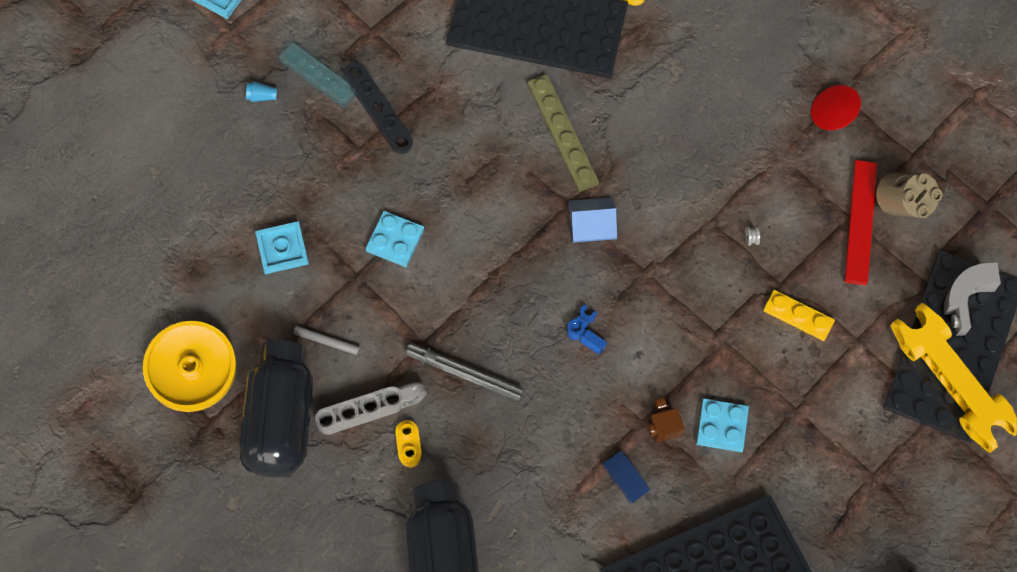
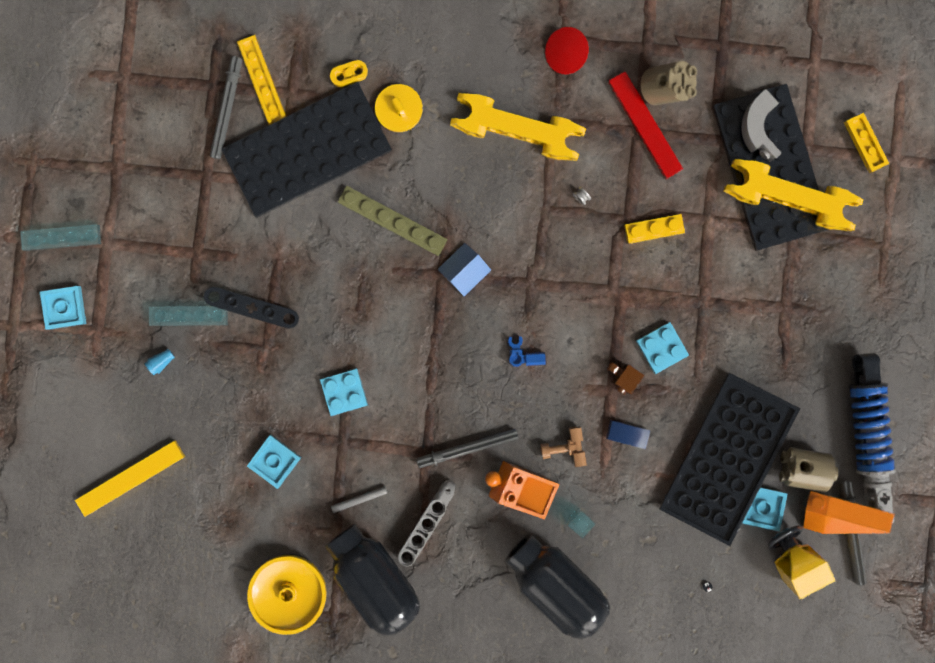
camera: 35 degrees left, 20 degrees up
(146, 166) = (130, 478): none -> yellow tile
(407, 443) = (471, 525): yellow plate -> none
(487, 450) = (521, 489): none -> orange slope
(513, 519) = (580, 522): none -> clear light blue brick
(563, 446) = (573, 447): none -> medium nougat bar
(646, 48) = (398, 108): none -> yellow shield
(762, 164) = (487, 118): none -> yellow piece

